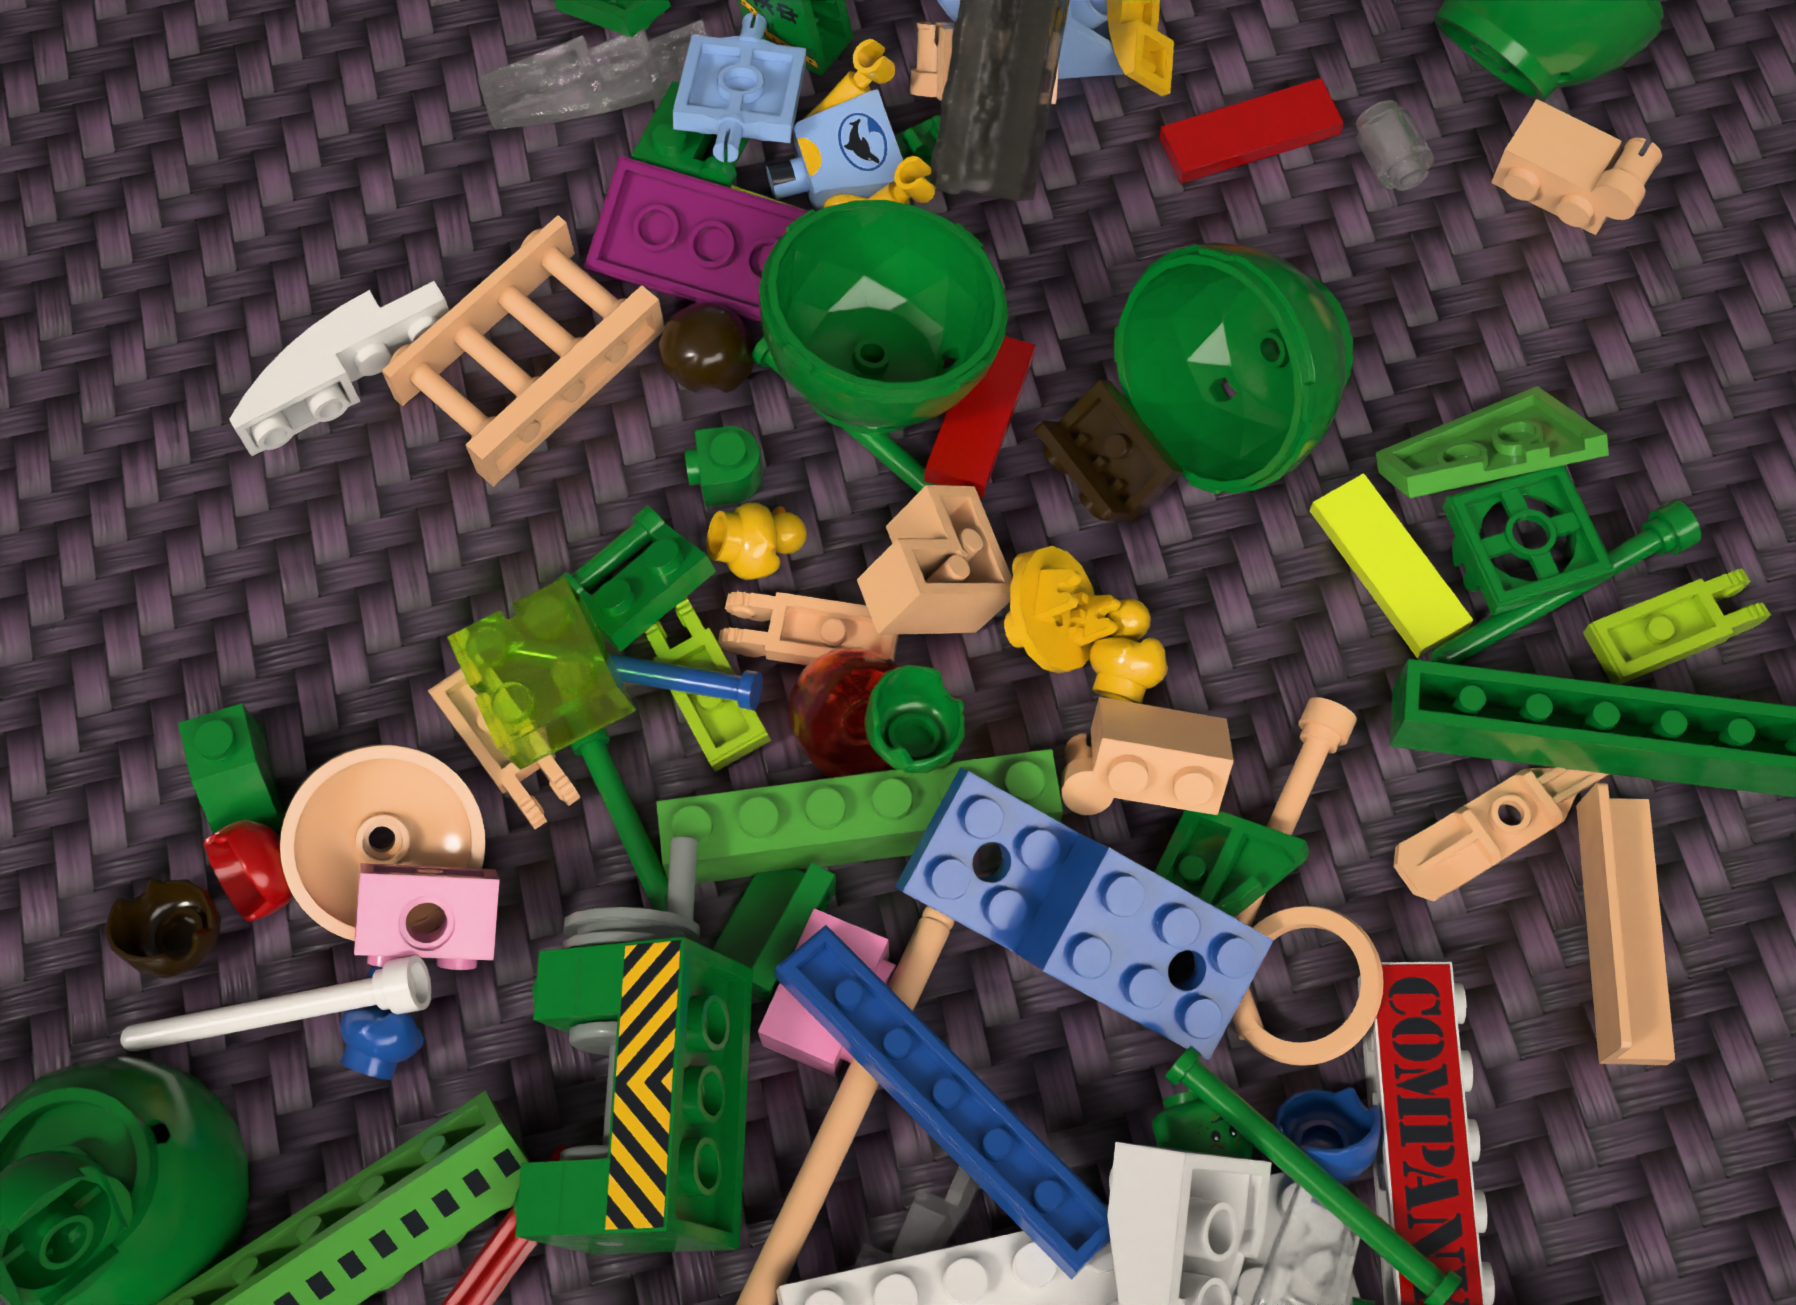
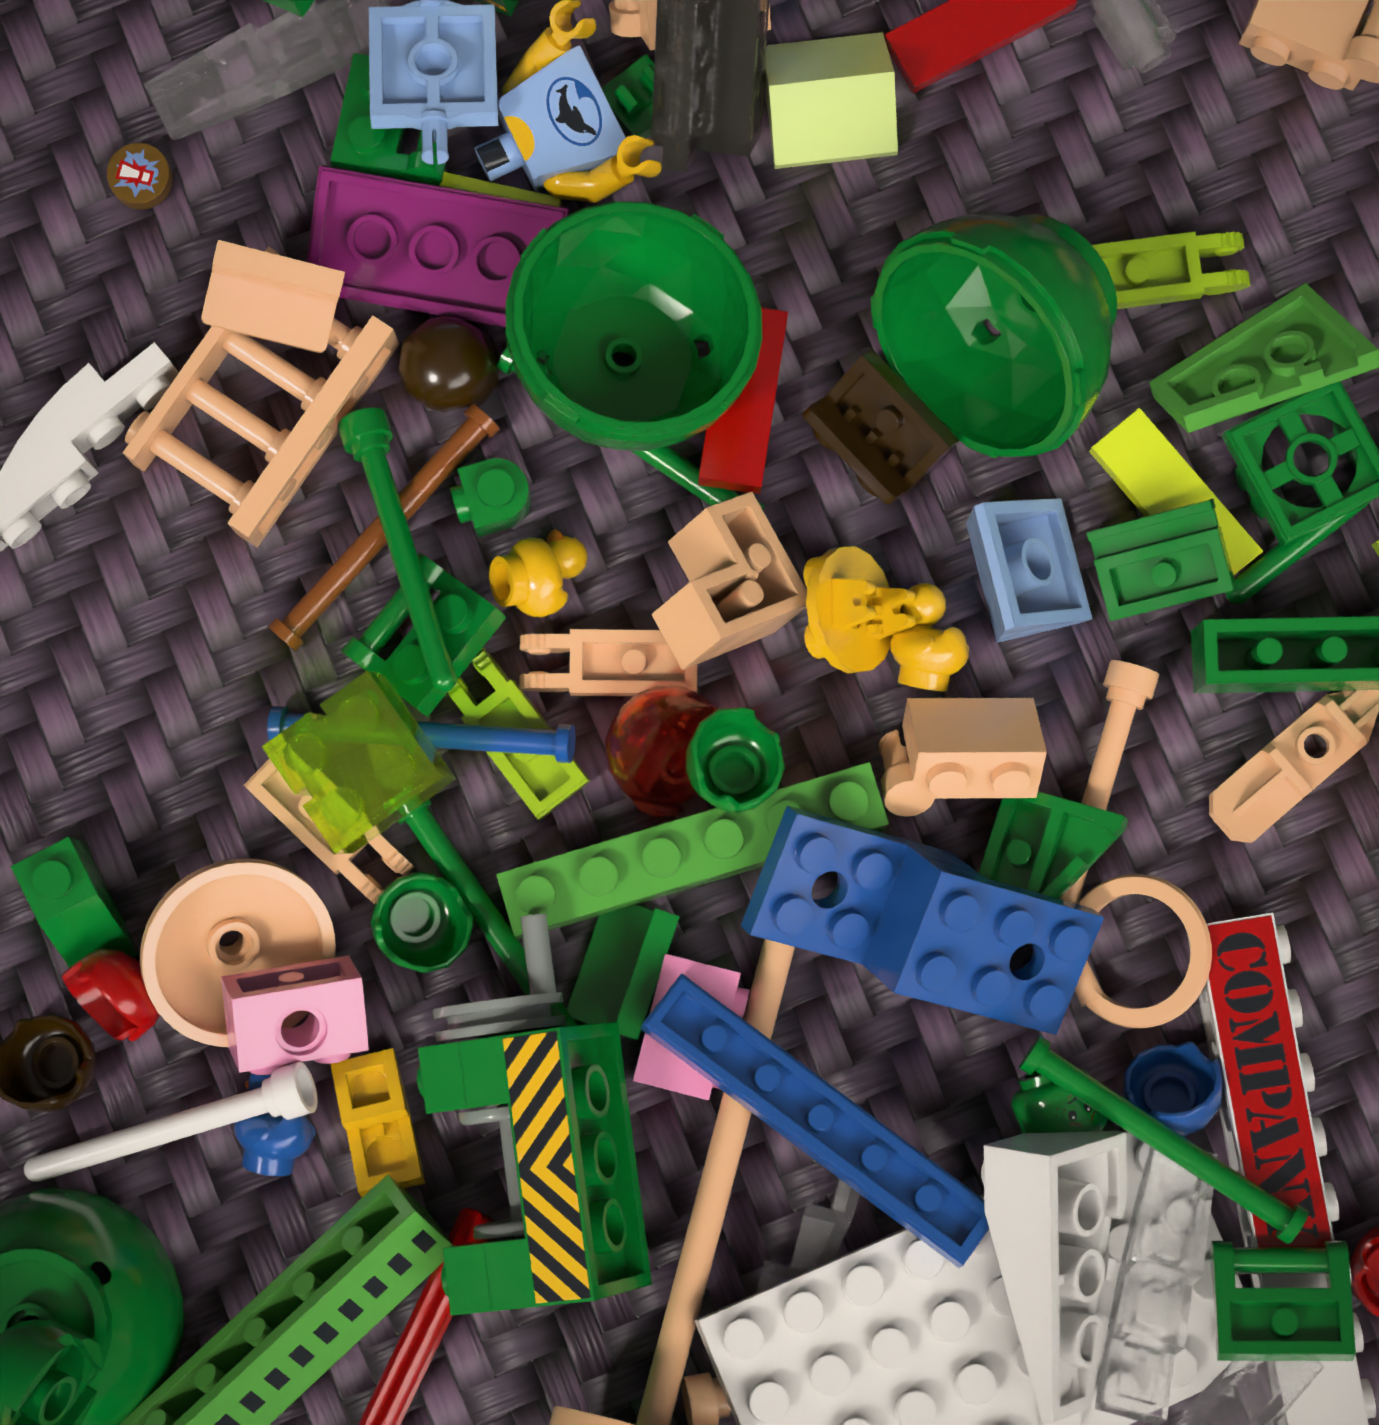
camera: 10 degrees left, 15 degrees up
(457, 156) = (139, 176): none -> pearl gold tile
(490, 1040) = (377, 1120): none -> yellow slope
(552, 250) = (271, 297): none -> light nougat panel
(573, 845) = (421, 922): none -> green hair
(615, 481) = (372, 538): none -> dark orange bar
(616, 399) = (367, 437): none -> green piece
(1102, 179) = (830, 100): none -> yellowish green slope
(1234, 601) = (1027, 567): none -> light blue slope
(1371, 609) = (1161, 560): none -> green plate
(1407, 357) = (1170, 268): none -> lime hinge

